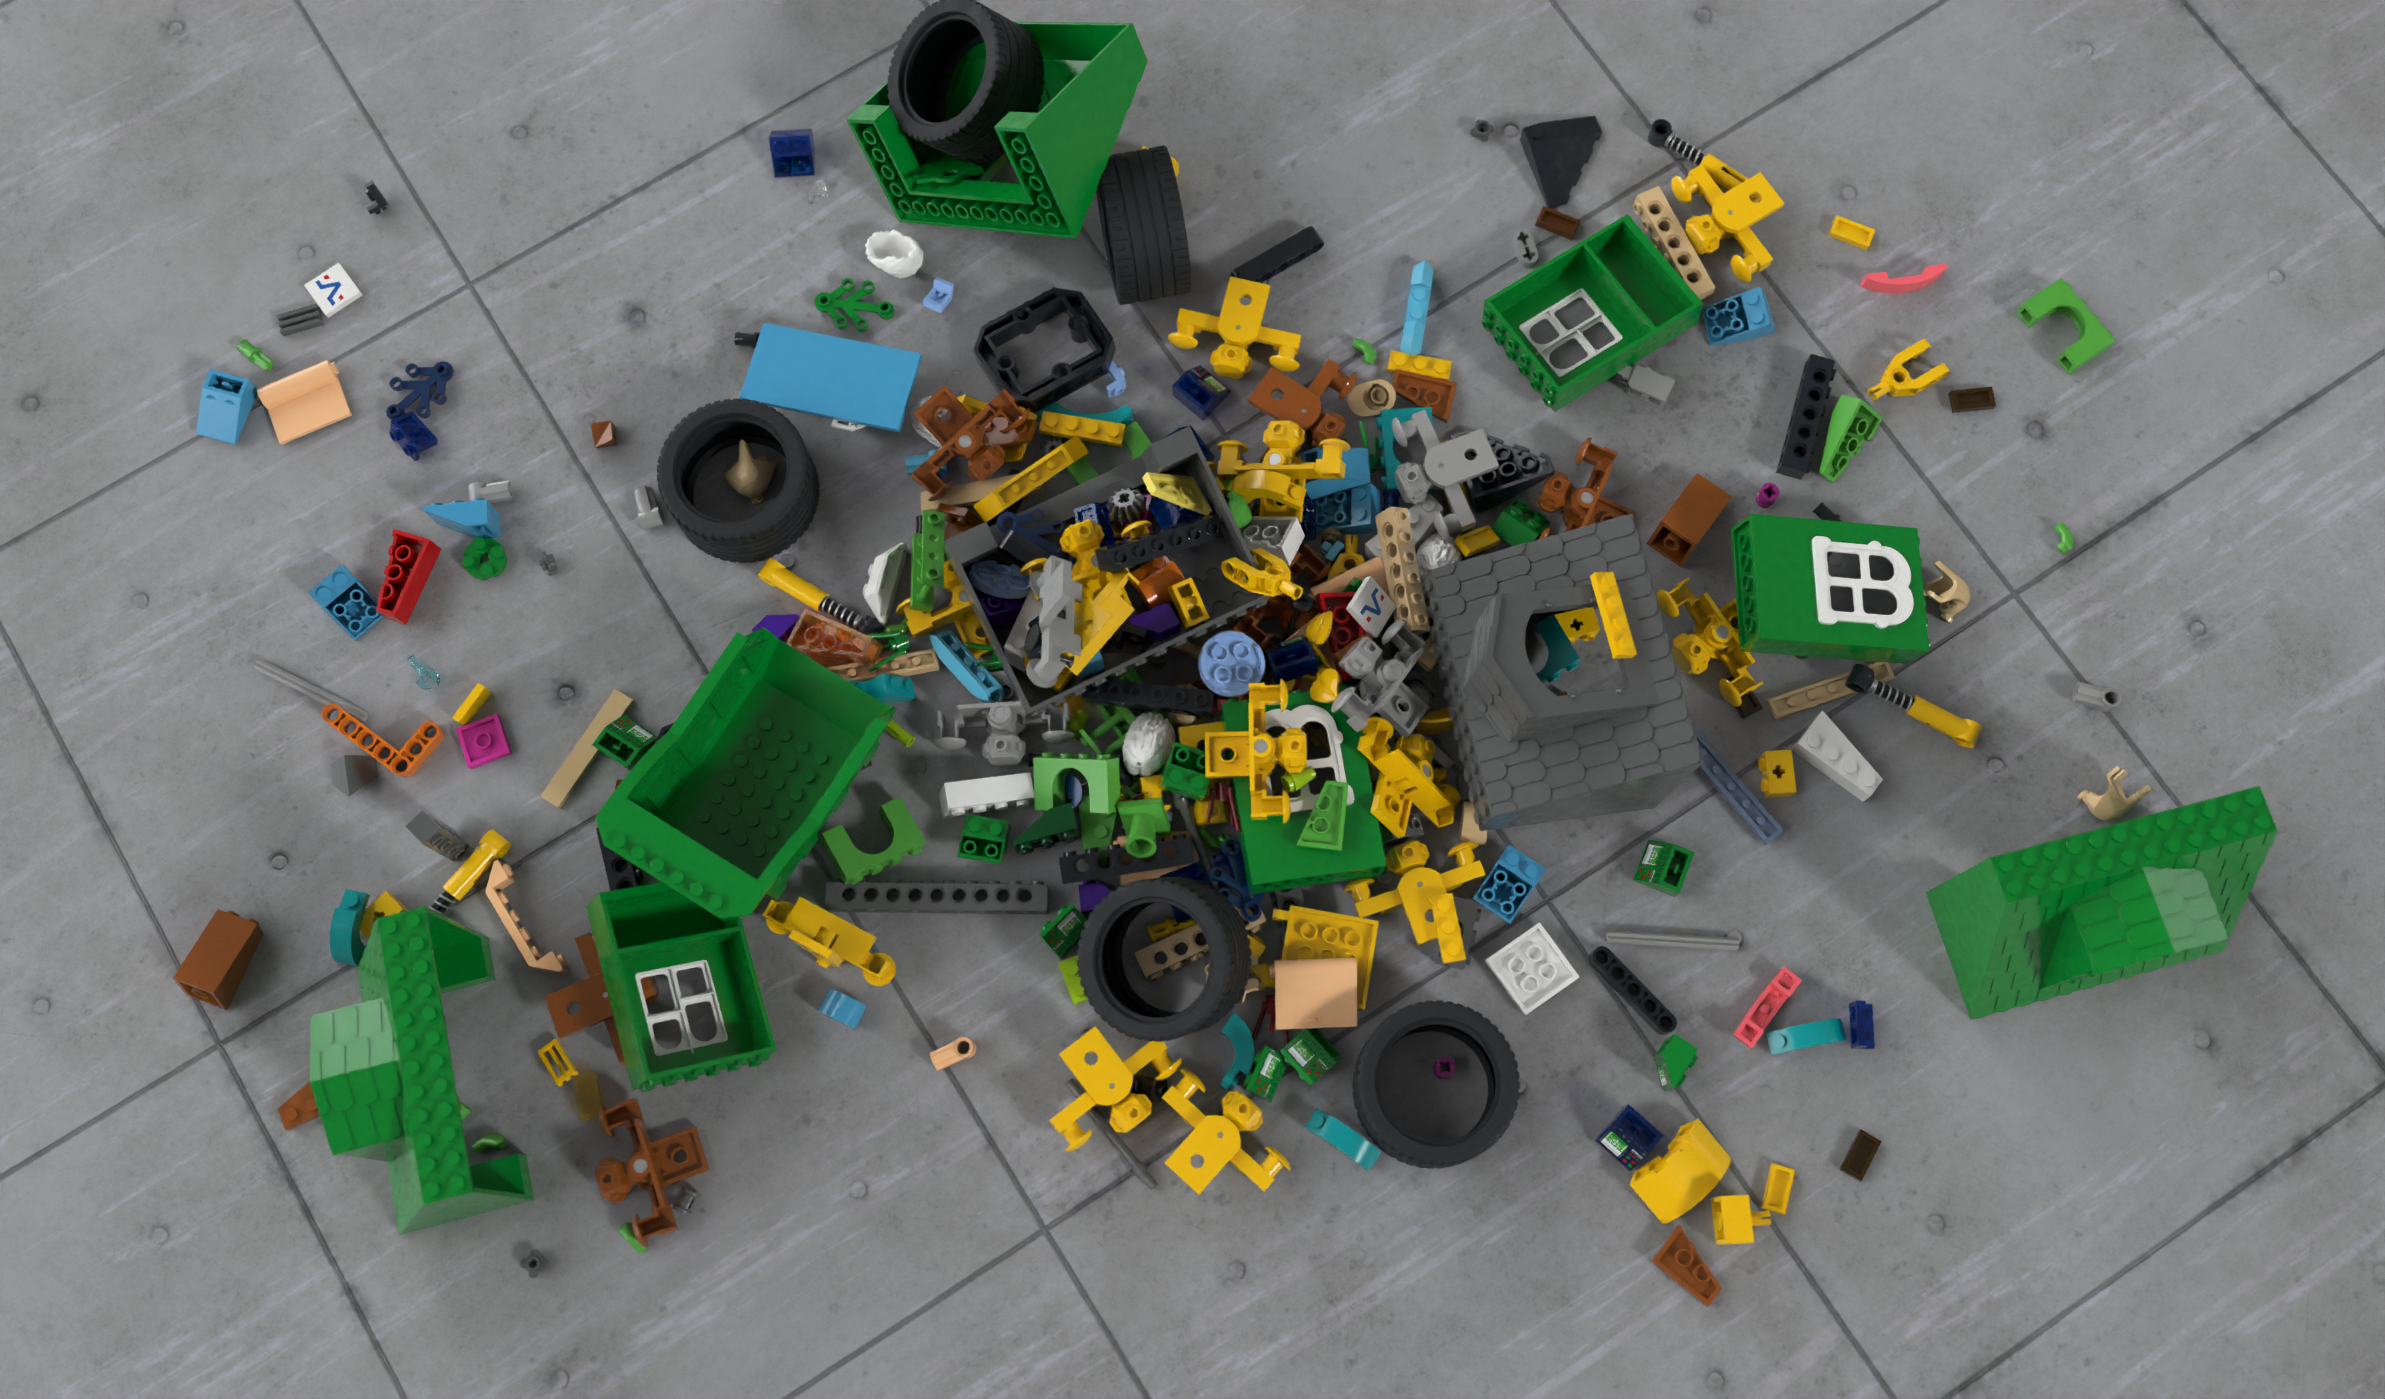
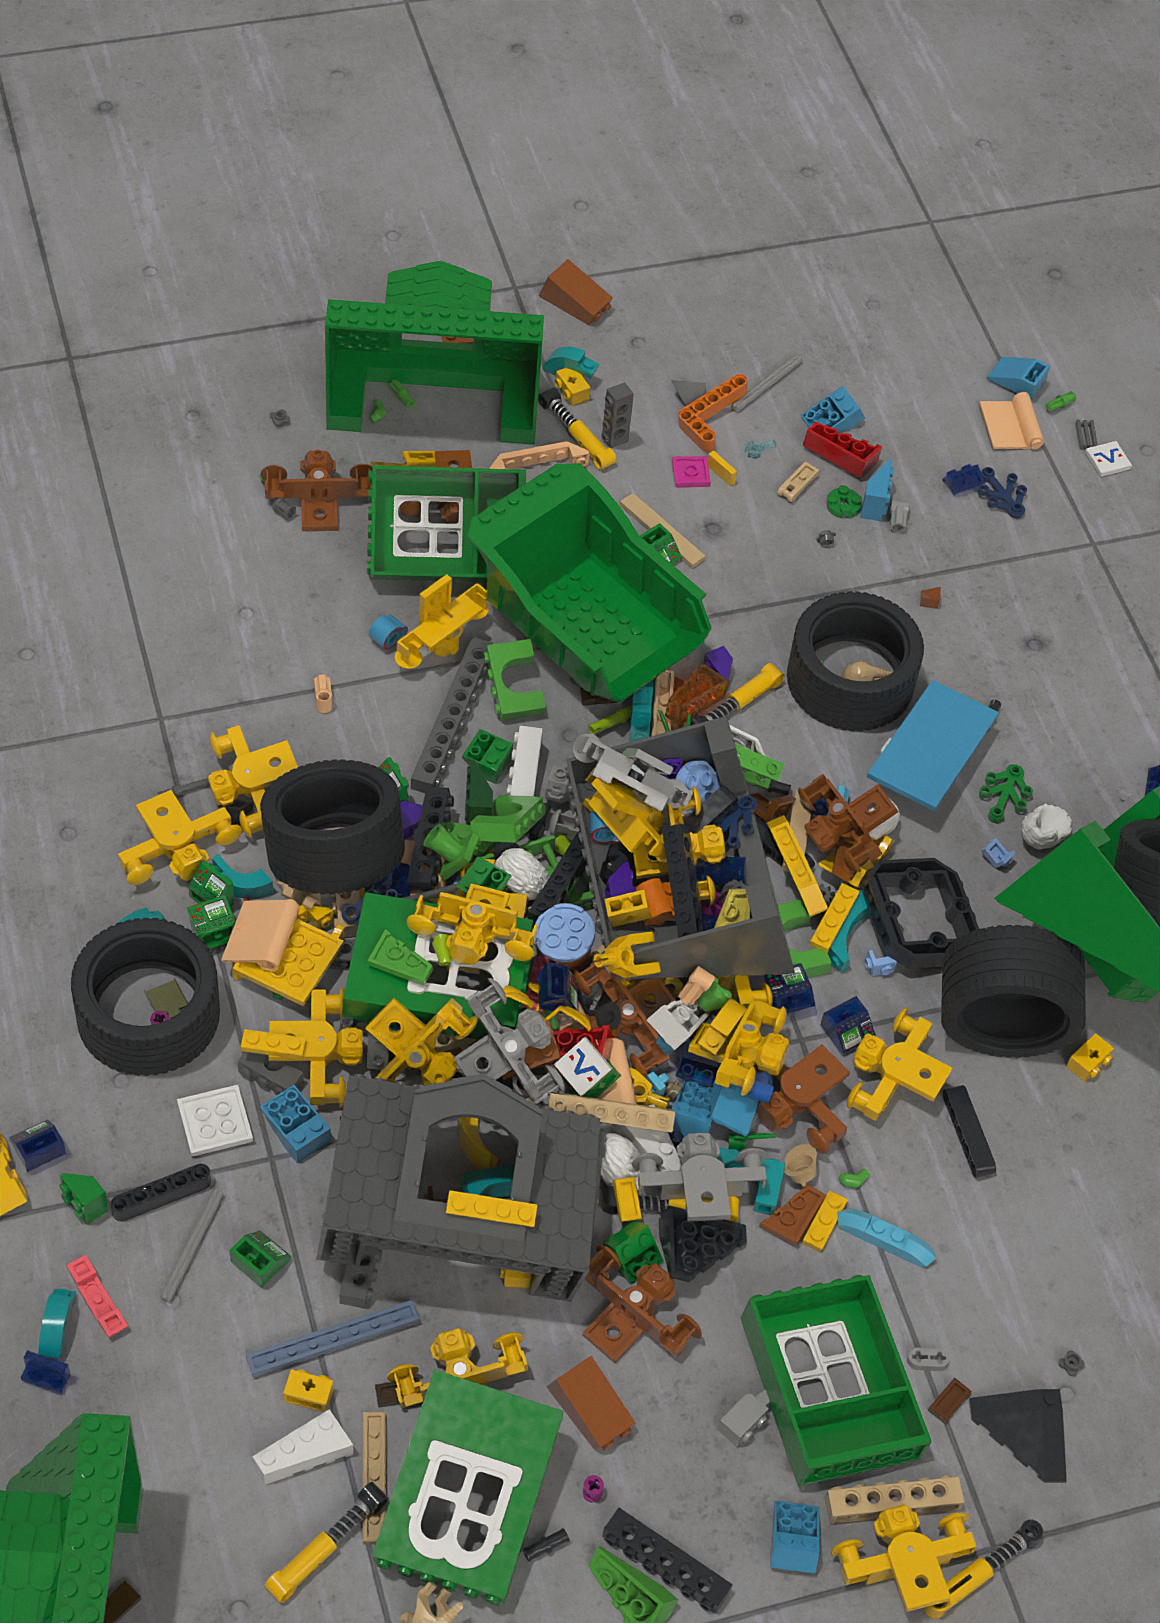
camera: 100 degrees right, 20 degrees down
(467, 614) = (798, 481): none -> tan plate
(1239, 512) = (697, 983): none -> light nougat piece
(1312, 441) = (762, 1087): none -> blue piece
(1409, 1074) = (167, 998): none -> olive piece

